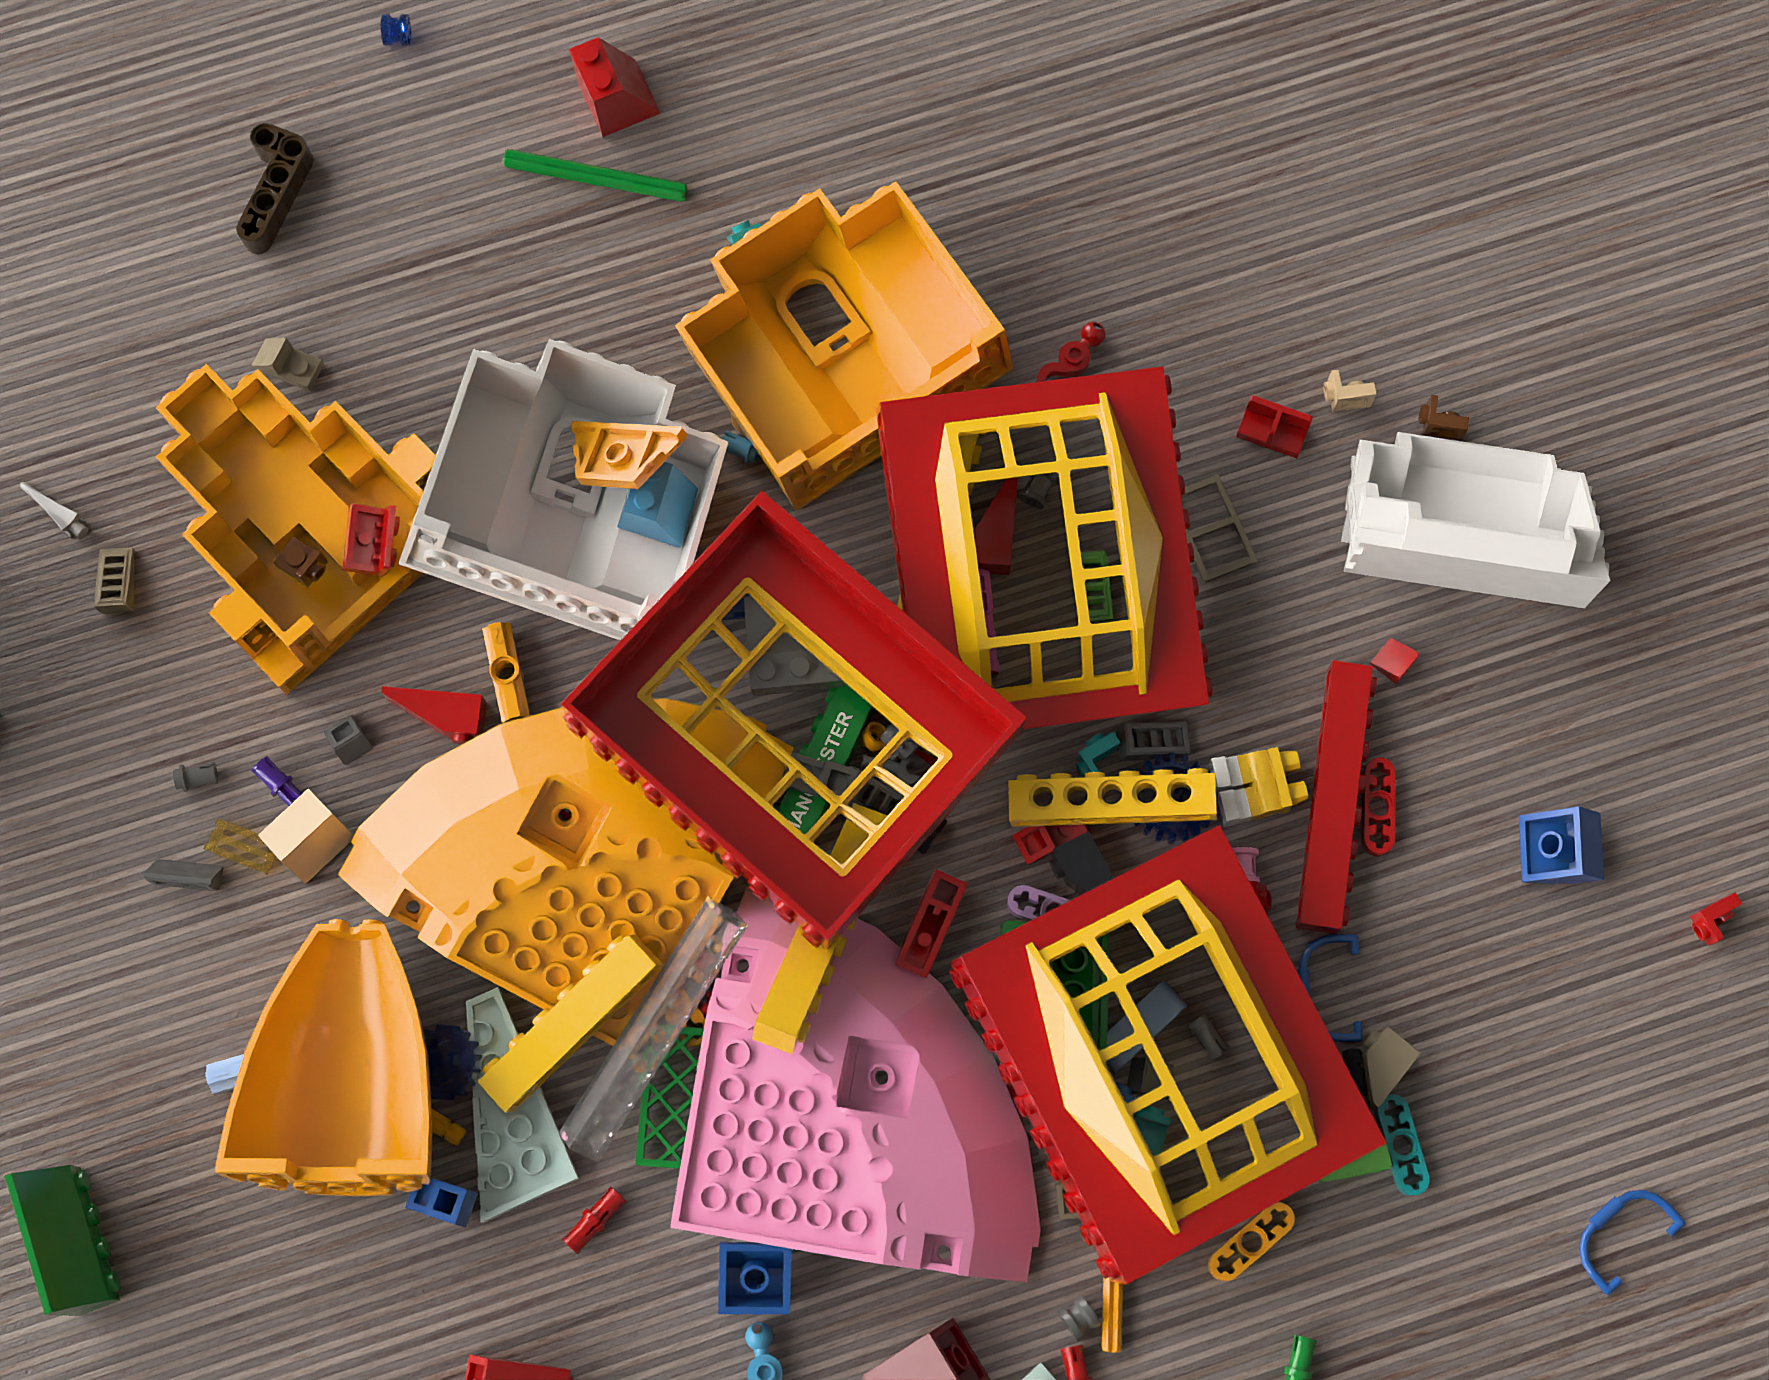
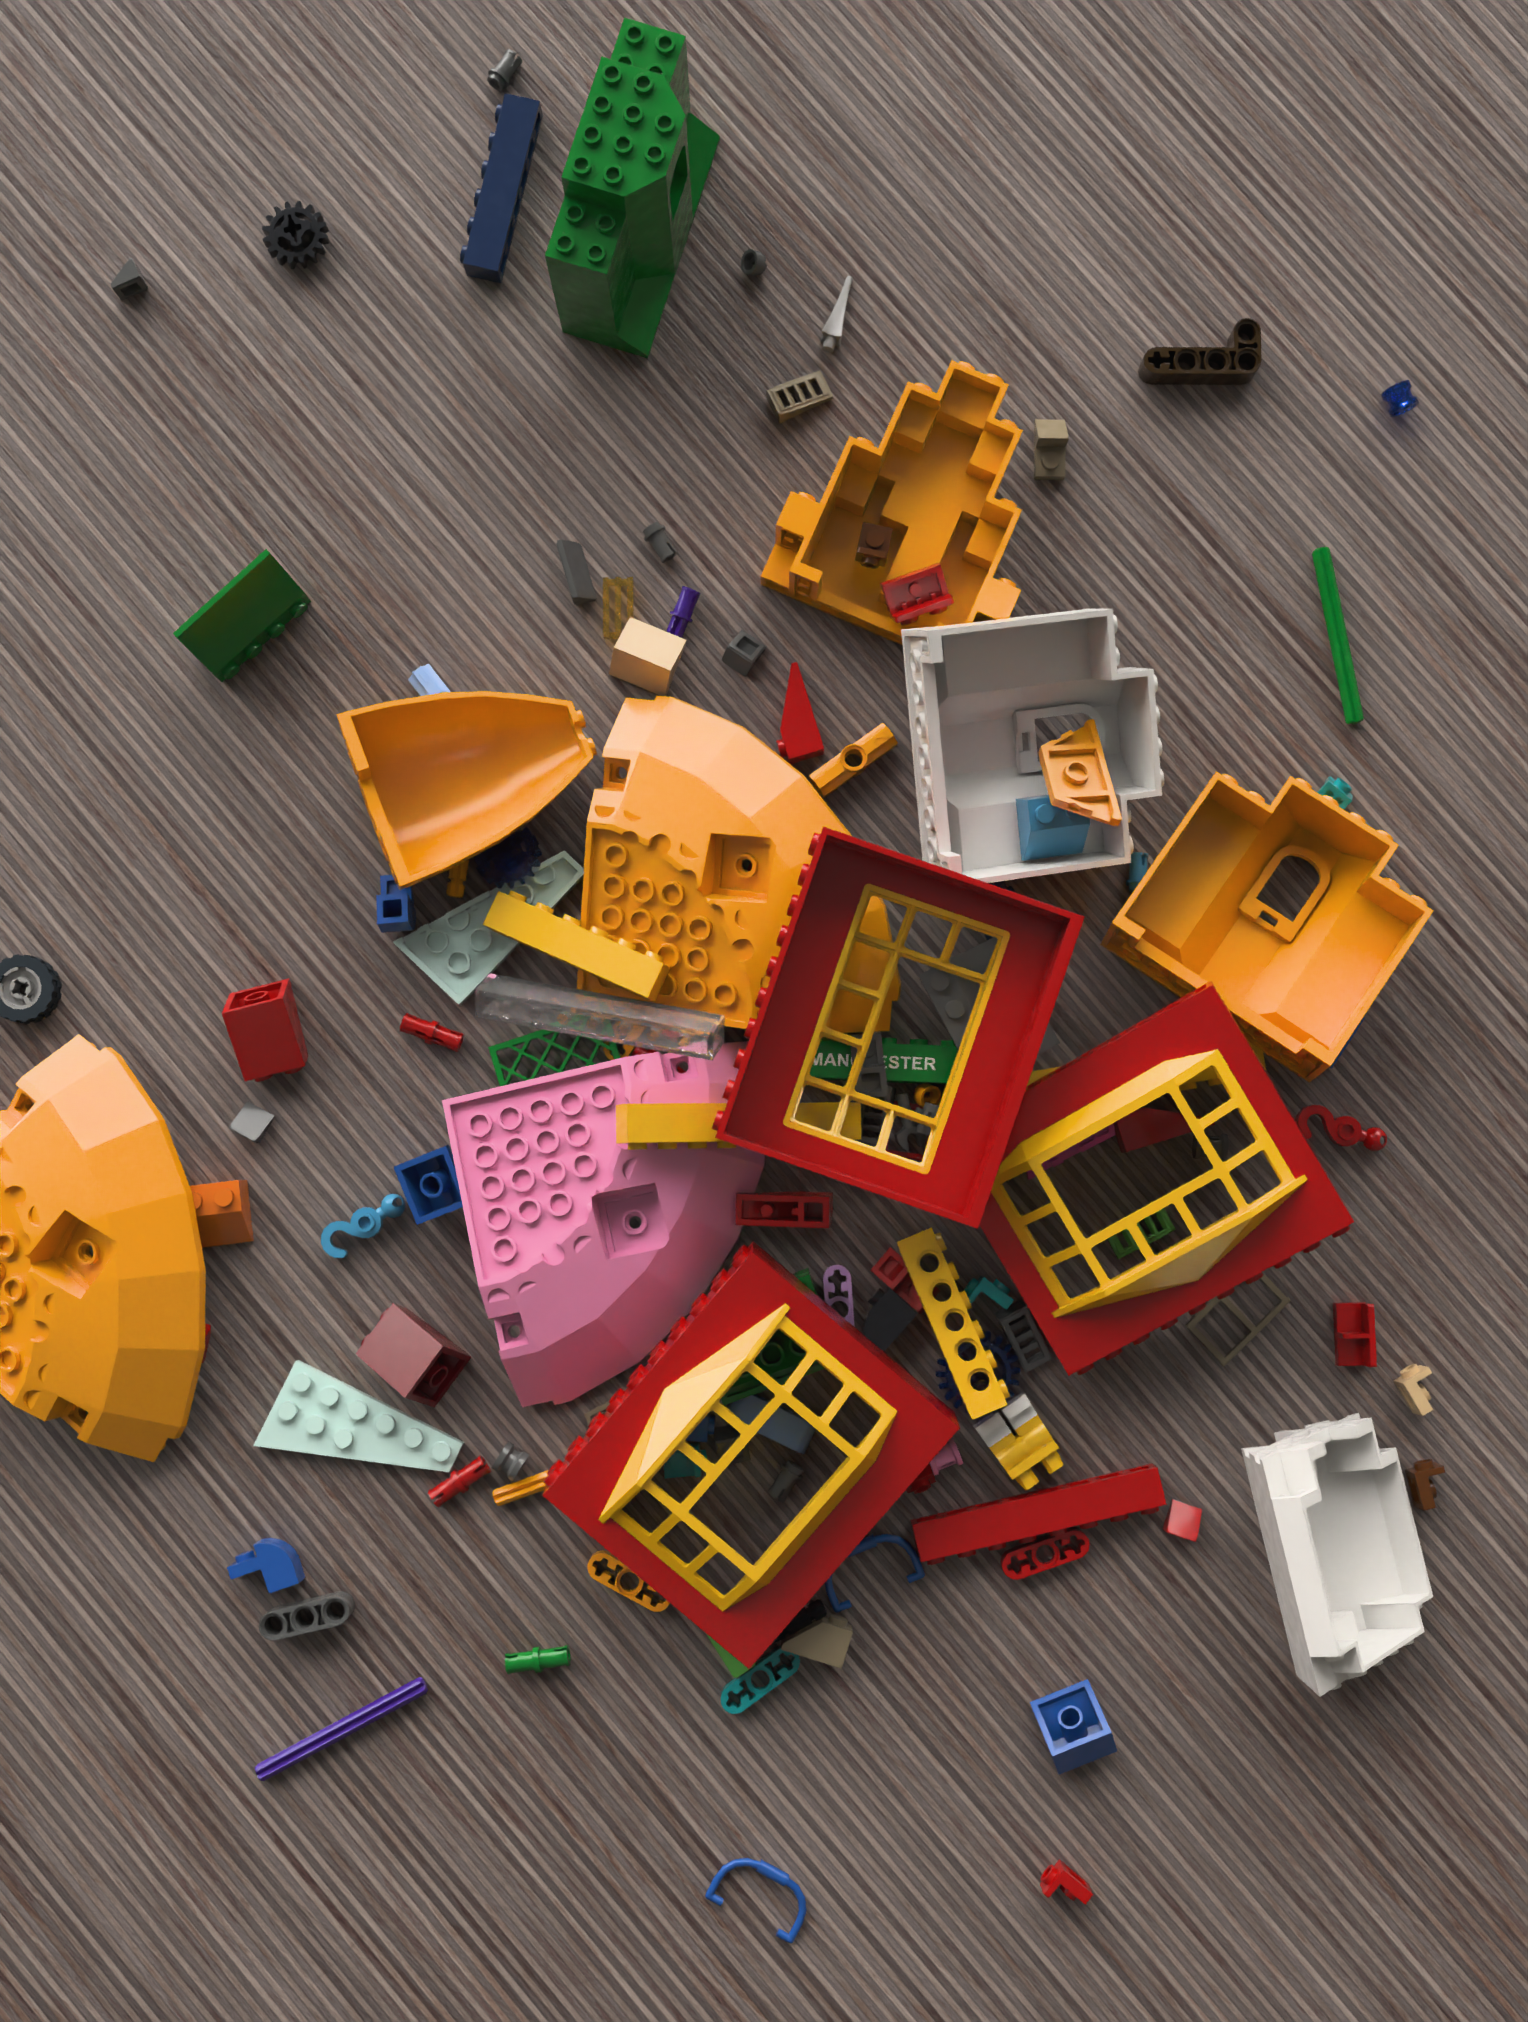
camera: 65 degrees right, 10 degrees up
(612, 86) = (1427, 615): red slope -> none

